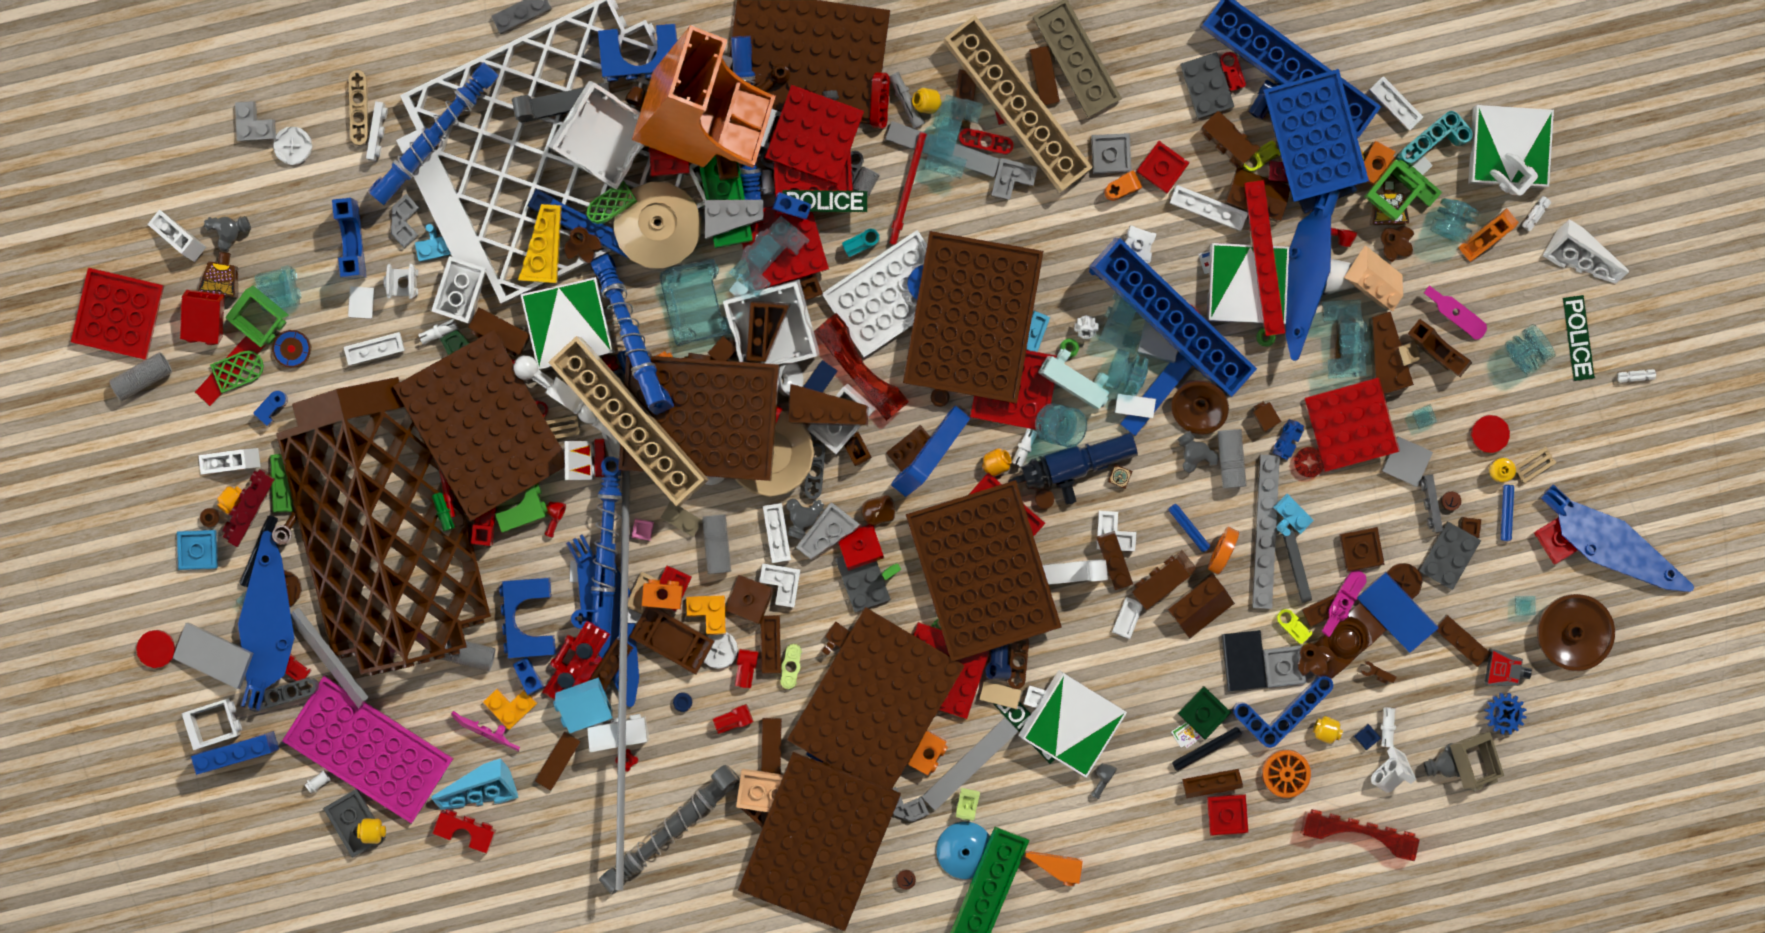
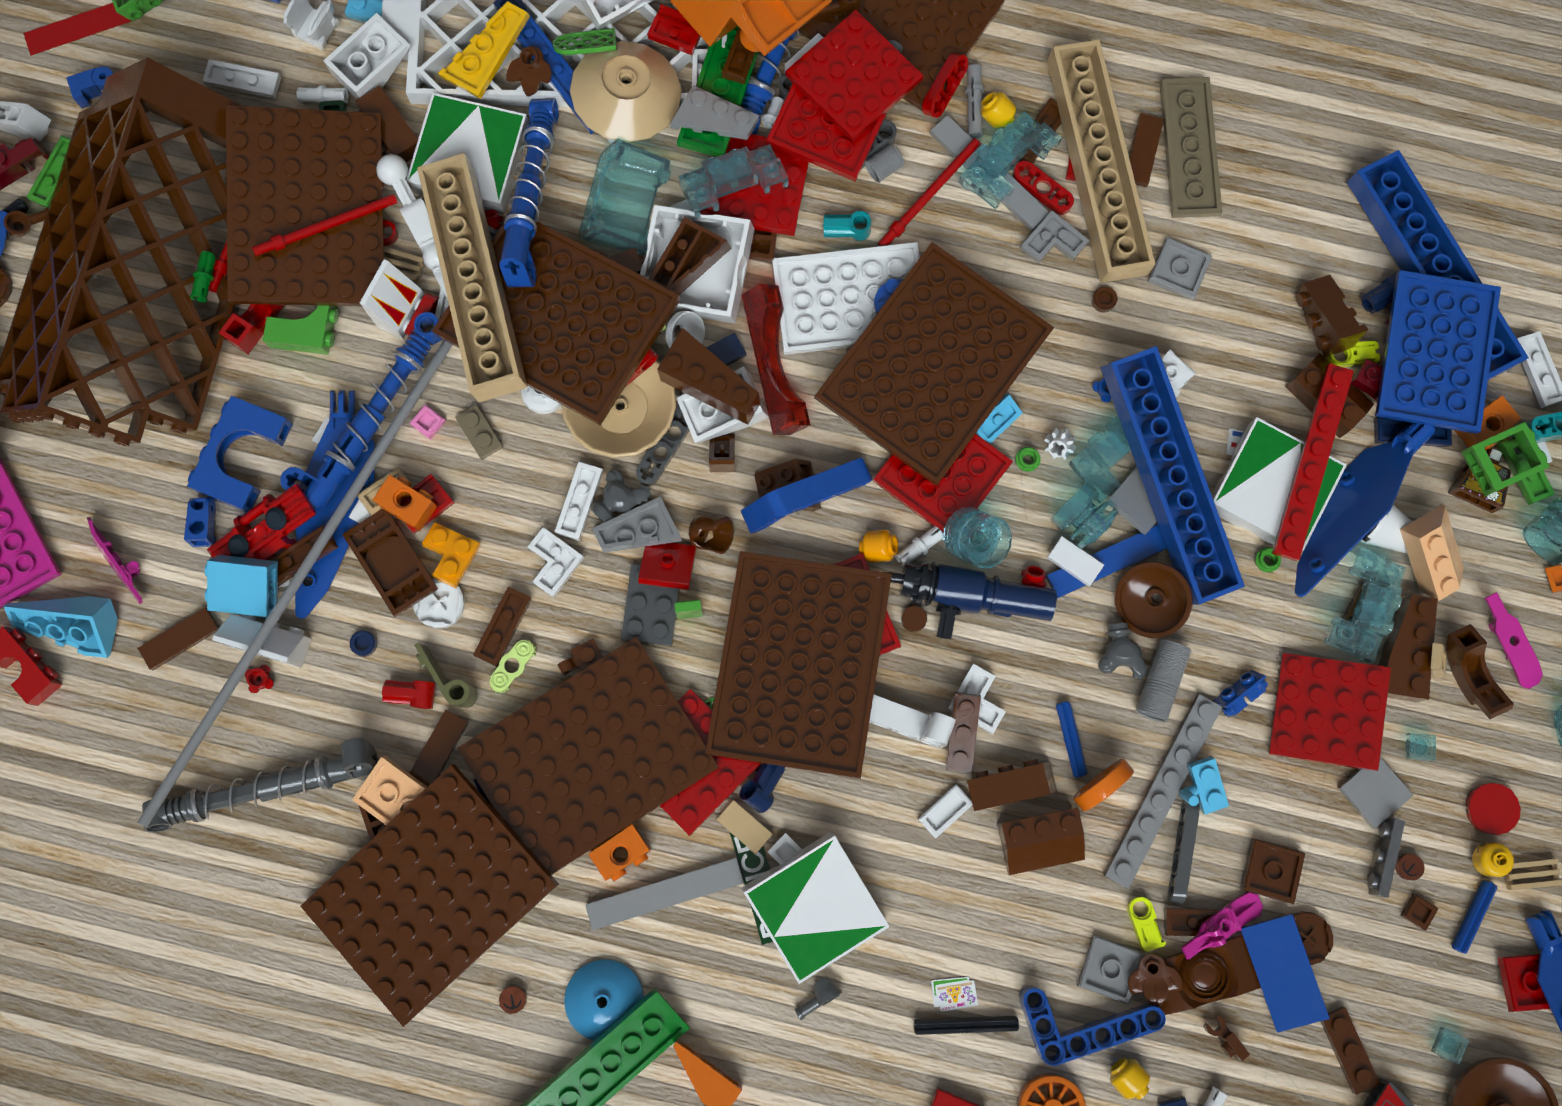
camera: 25 degrees right, 10 degrees down
(241, 367) = (55, 44): bright green window -> none
(291, 348) = (153, 37): tile -> none
(361, 302) = (258, 27): white sticker -> none
(473, 656) = (146, 460): light grey piece -> none
(483, 463) = (278, 242): none -> red bar
(509, 712) = (155, 552): light orange plate -> none
(555, 511) = (340, 354): red bar -> none
(716, 544) = (497, 486): light grey piece -> none
(746, 663) = (462, 633): red piece -> none
(749, 599) = (505, 561): reddish brown plate -> none
(766, 704) = (456, 691): none -> olive door
(791, 206) = (787, 135): blue leg -> none
(831, 200) = (828, 152): dark green sticker -> none
(911, 810) = (562, 915): light grey tile -> none
(939, 397) = (849, 441): reddish brown plate -> none
(967, 804) = (635, 942): yellowish green bracket -> none
(1021, 675) = (783, 817): reddish brown beam -> none
(1068, 203) = (1104, 299): none -> reddish brown tile
(1074, 382) = (1016, 496): light aqua brick -> none
(1112, 430) = (1033, 576): none -> red plate
(1120, 476) = (1016, 637): tile -> none
(1125, 185) = (1177, 309): orange piece -> none
(1162, 167) = (1233, 310): red plate -> none
(1204, 712) = (984, 977): dark green tile -> none
(1207, 85) = (1325, 246): dark grey plate -> none
(1208, 208) = (1267, 380): white plate -> none
(1212, 783) = (952, 1073): reddish brown plate -> none
(1233, 73) = (1362, 248): red piece -> none
(1244, 660) = (1063, 936): black piece -> none
(1265, 415) = (1227, 651): reddish brown brick -> none
(1302, 468) = (1264, 728): clear red gear -> none
(1345, 237) = (1415, 490): red bar -> none
(1399, 244) = (1475, 530): reddish brown plate -> none
(1449, 555) = (1379, 934): dark grey plate -> none

